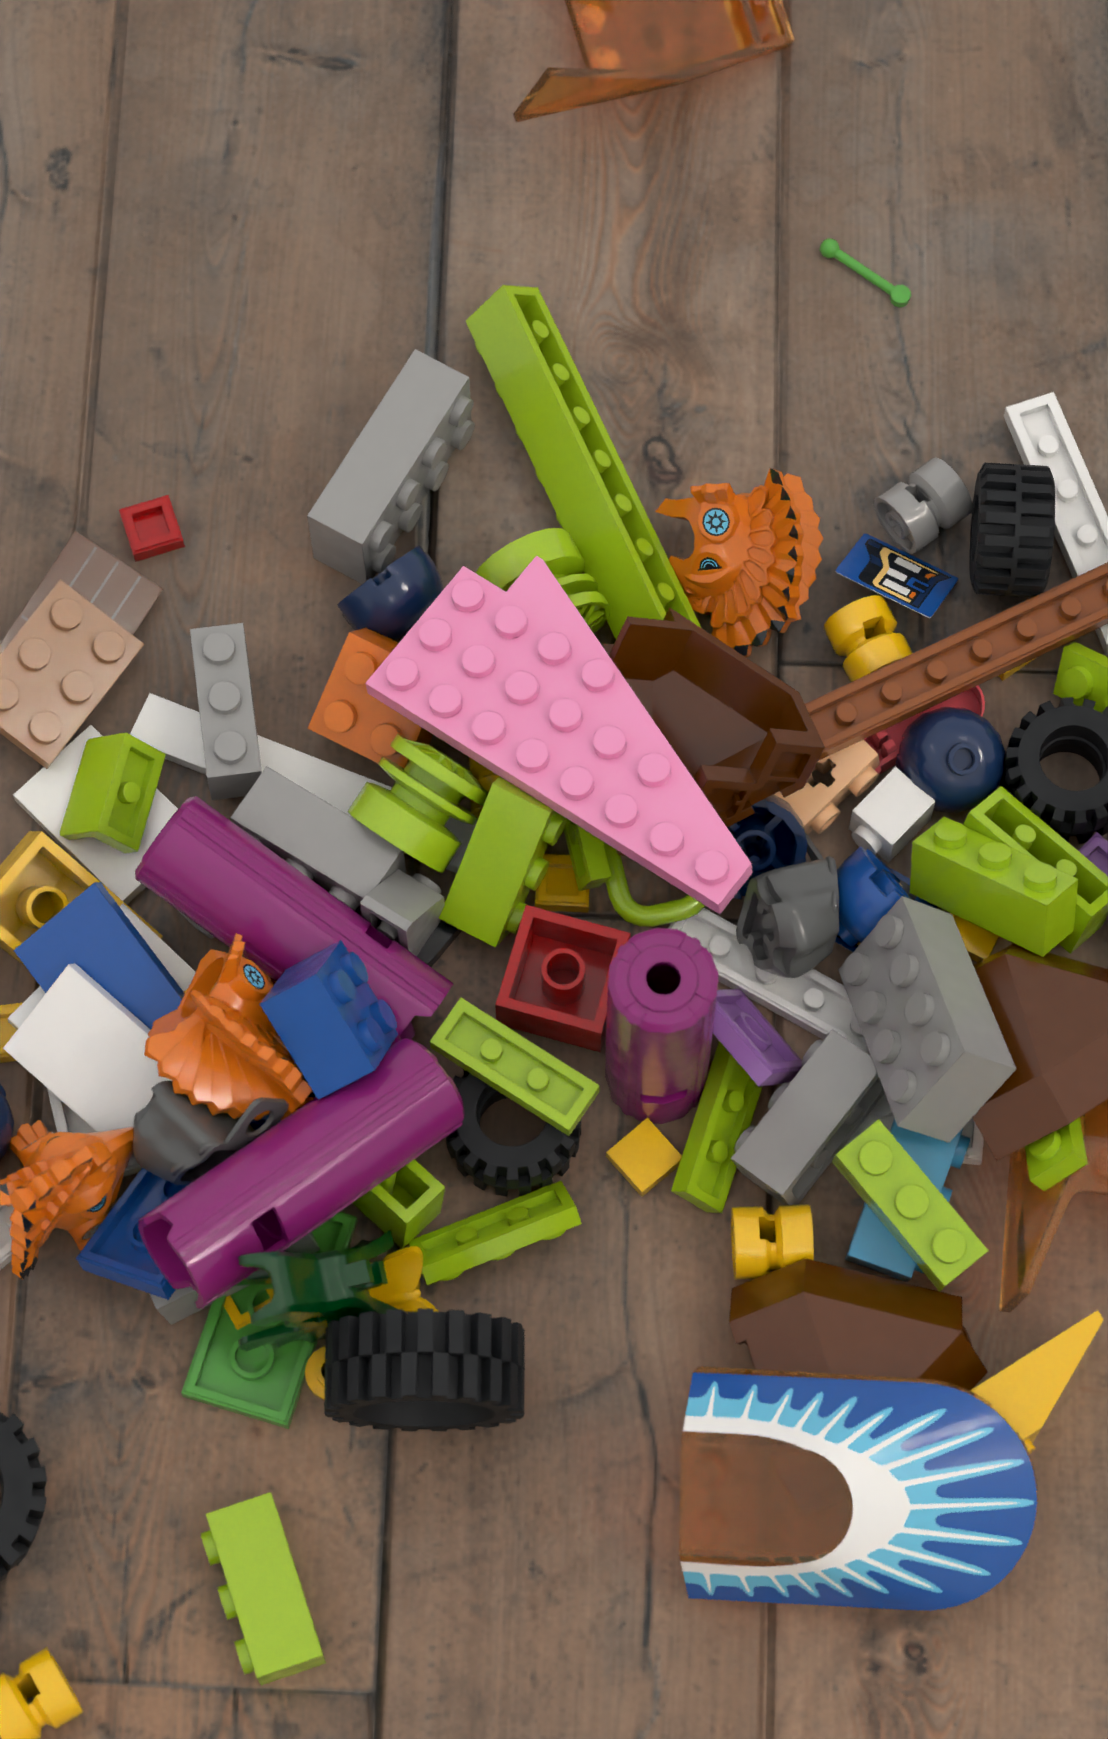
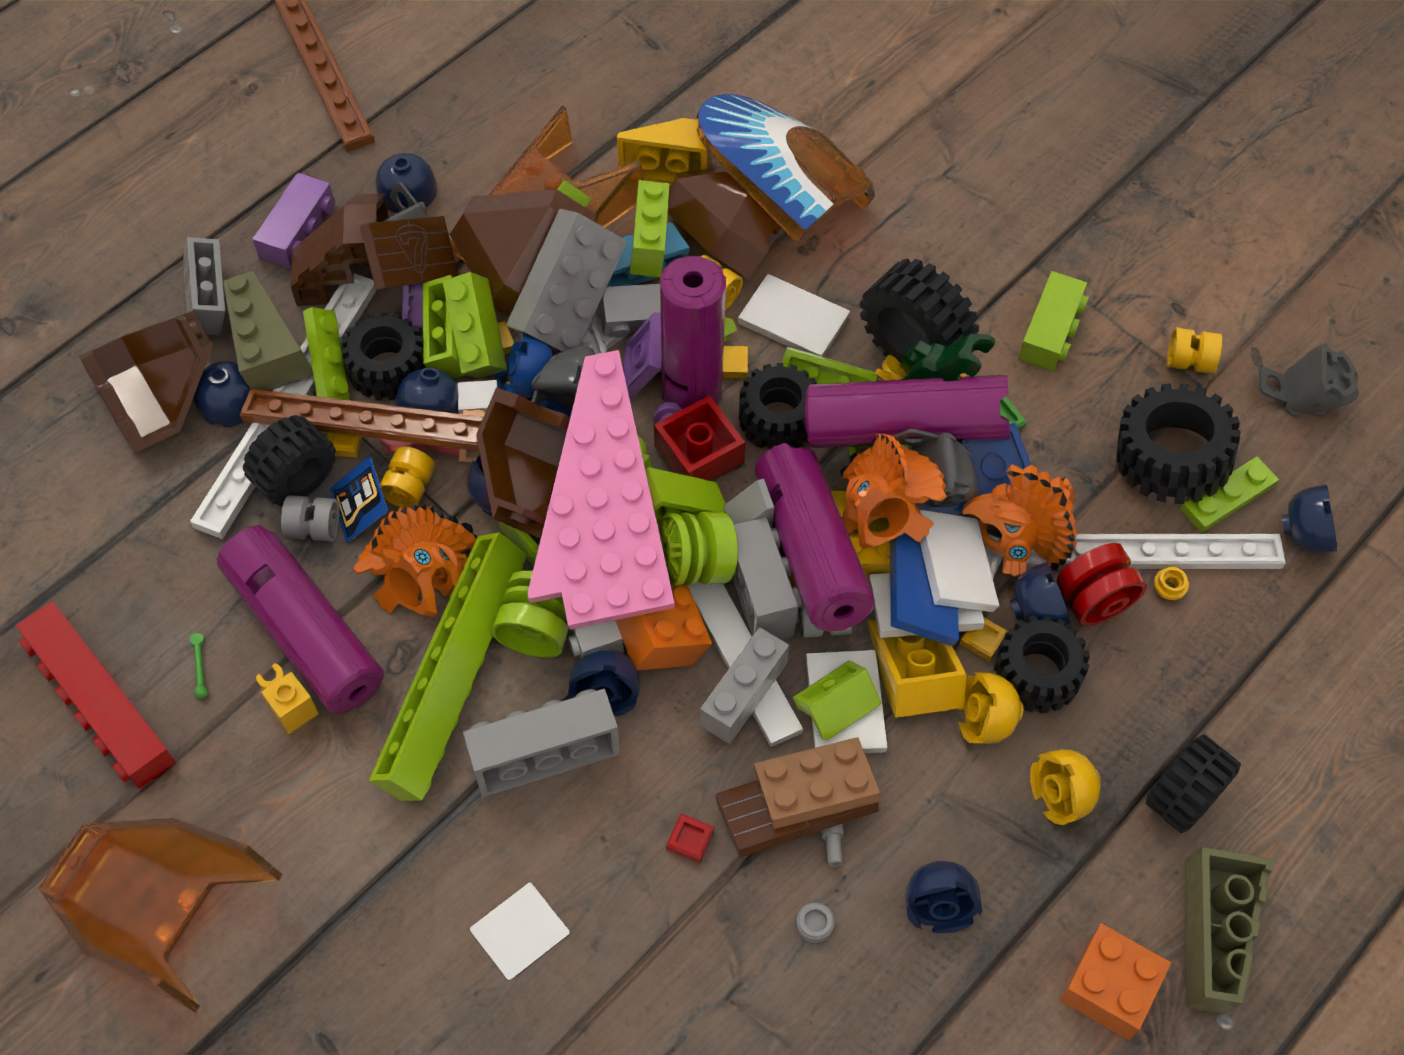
camera: 140 degrees left, 10 degrees down
(247, 304) = (519, 931): none -> white sticker
(330, 1019) = (839, 454): blue brick -> none
(514, 1066) = (764, 401): lime plate -> none
(626, 1299) = (793, 316): none -> white tile
(718, 303) = (287, 699): none -> yellow brick
(798, 383) = (300, 619): none -> magenta piece
(931, 148) = (95, 694): none -> red brick

